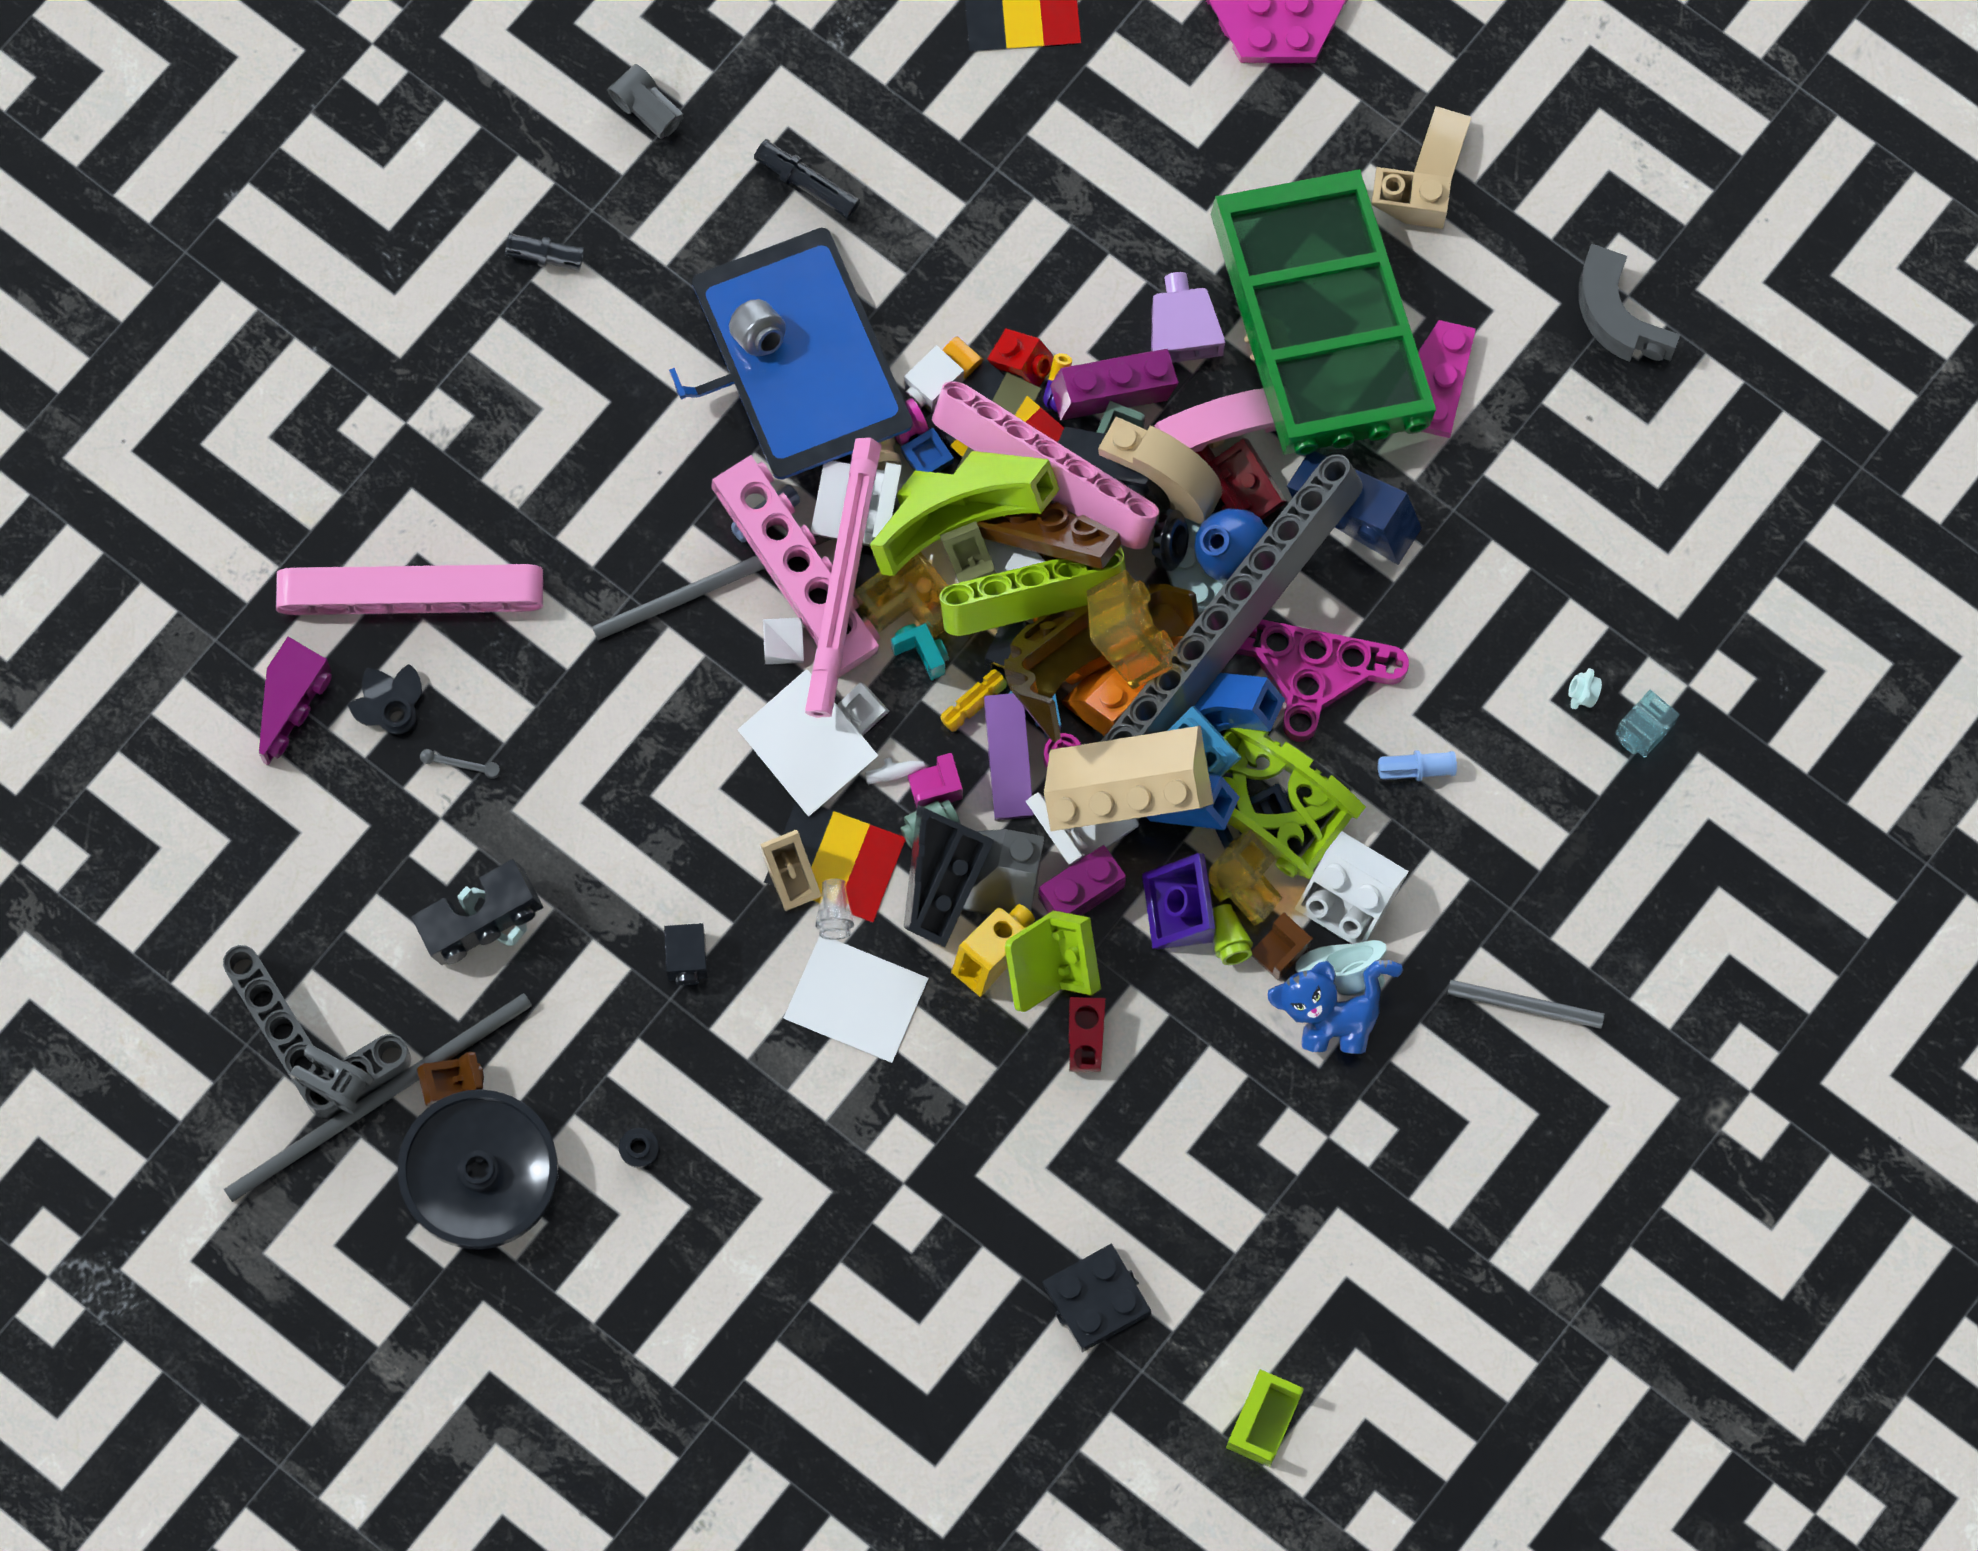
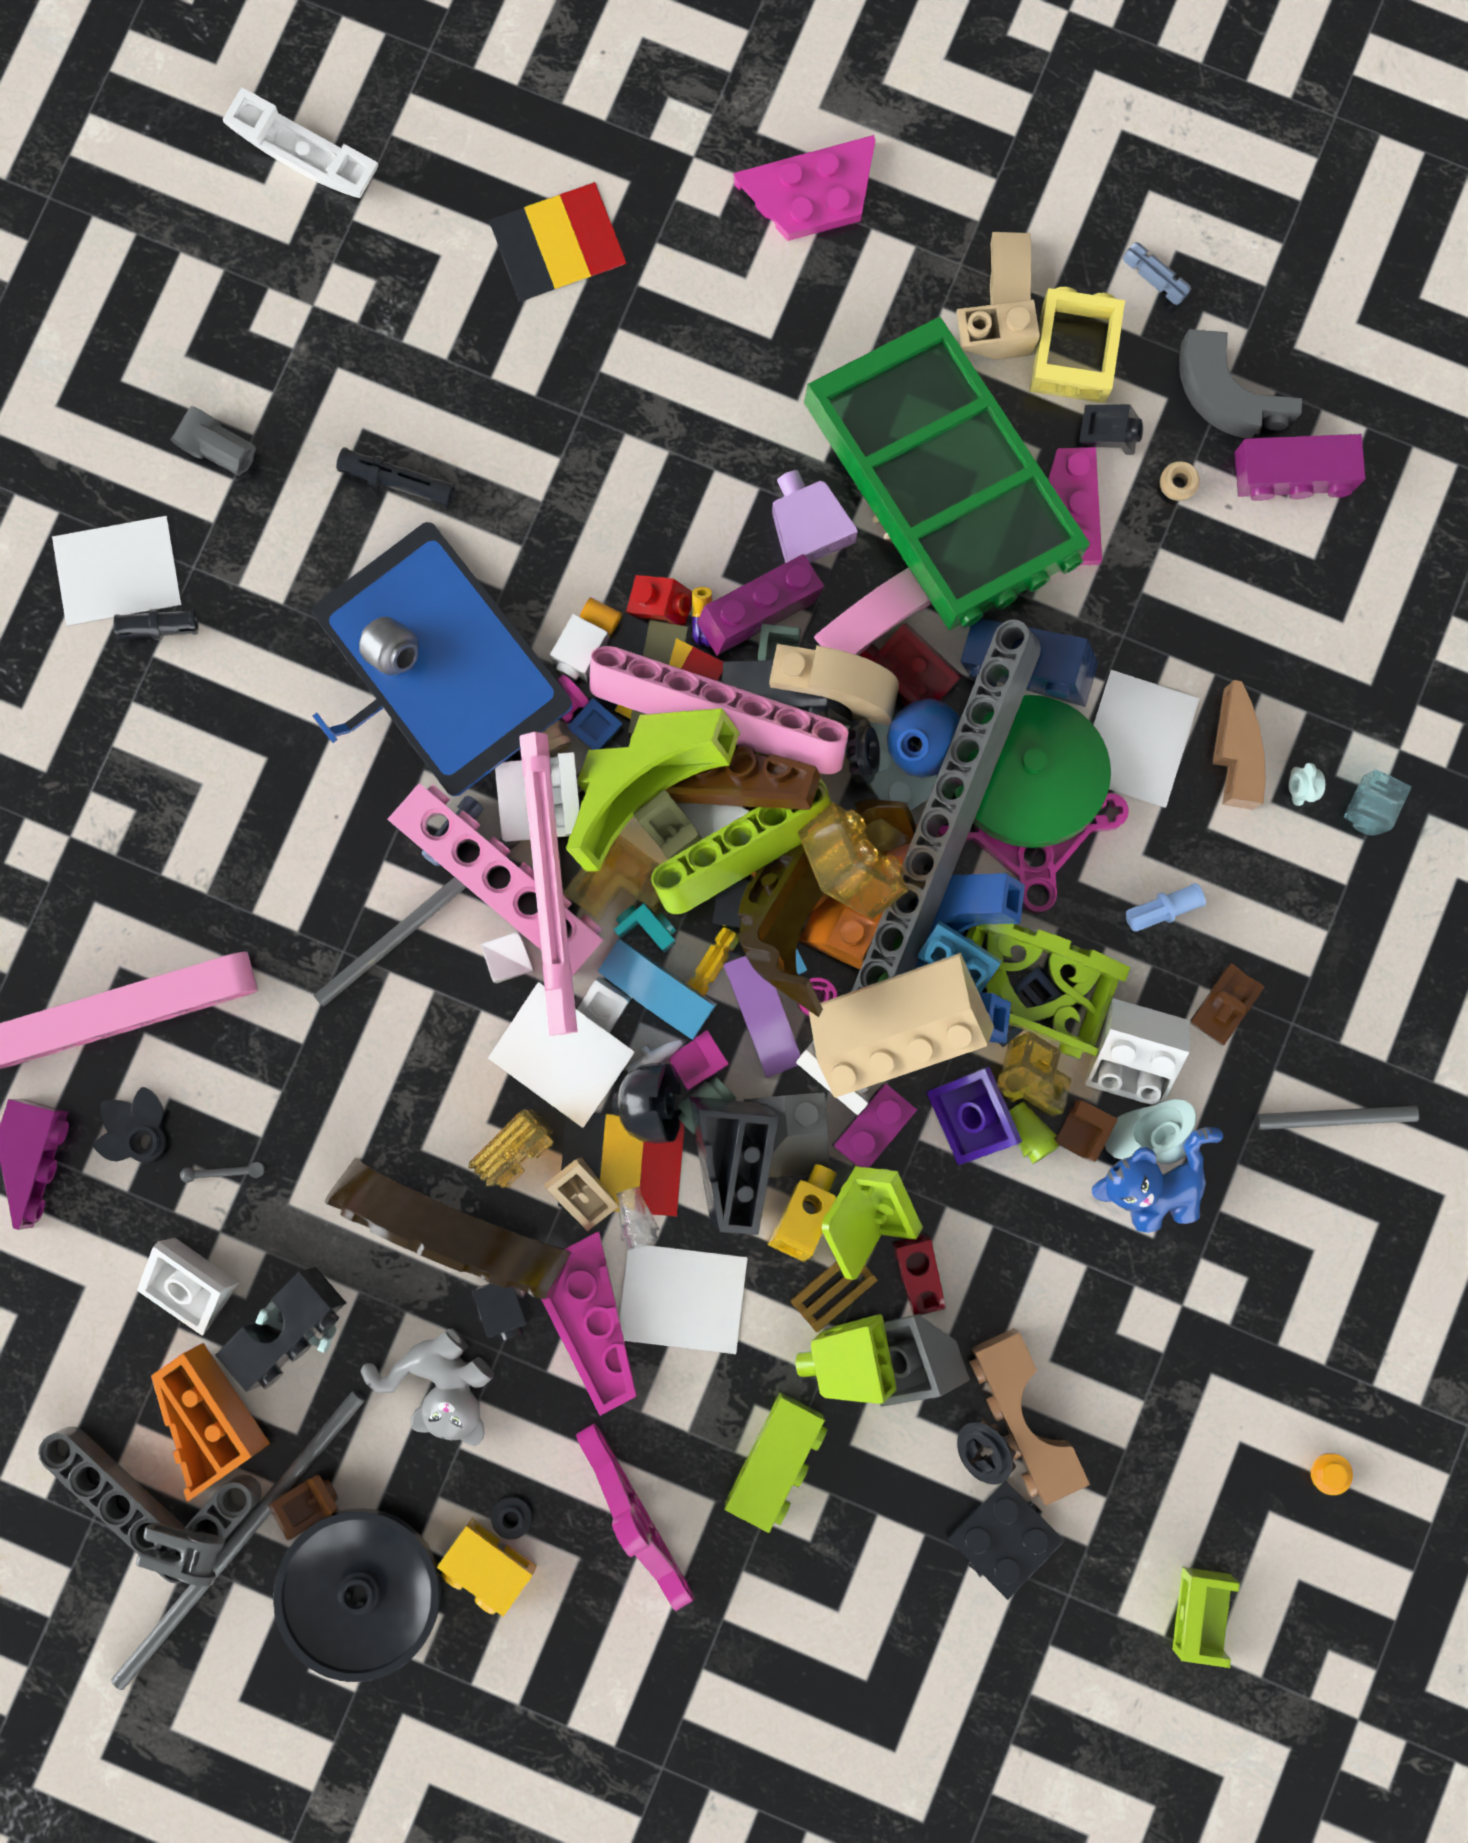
camera: 15 degrees left, 10 degrees up
(384, 976) = (205, 1419): none -> orange wedge
(397, 853) = (186, 1284): none -> white slope
(519, 193) = (116, 570): none -> white sticker
(603, 1183) = (485, 1569): none -> yellow piece
(610, 1030) = (450, 1407): none -> light grey animal
(666, 859) = (446, 1232): none -> dark brown windscreen
(739, 808) = (502, 1157): none -> clear yellow brick
(754, 1177) = (631, 1521): none -> dark pink beam
(761, 979) = (590, 1325): none -> dark pink wing
(877, 805) = (648, 1103): none -> black cylinder
(901, 1164) = (776, 1463): none -> lime brick
(916, 706) = (657, 988): none -> dark azure slope
(992, 1015) = (807, 1313): none -> pearl gold tile
(998, 1087) = (851, 1362): none -> lime torso
(1055, 1105) = (922, 1360): none -> dark grey slope
(1089, 1202) = (990, 1468): none -> black gear
(1158, 1239) = (1049, 1463): none -> medium nougat arch
(1335, 612) = (1046, 777): none -> green dish
(1423, 1325) = (1331, 1473): none -> light orange plate
(1439, 607) = (1144, 735): none -> white sticker
(1447, 866) = (1226, 1004): none -> reddish brown hips
(1470, 262) = (1072, 381): none -> light yellow window
(1495, 314) = (1111, 427): none -> black bracket
(1530, 641) = (1240, 749): none -> medium nougat slope
(1550, 371) = (1184, 471): none -> tan plate
(1582, 185) = (1156, 273): none -> sand blue axle
(1664, 397) = (1299, 466): none -> magenta brick

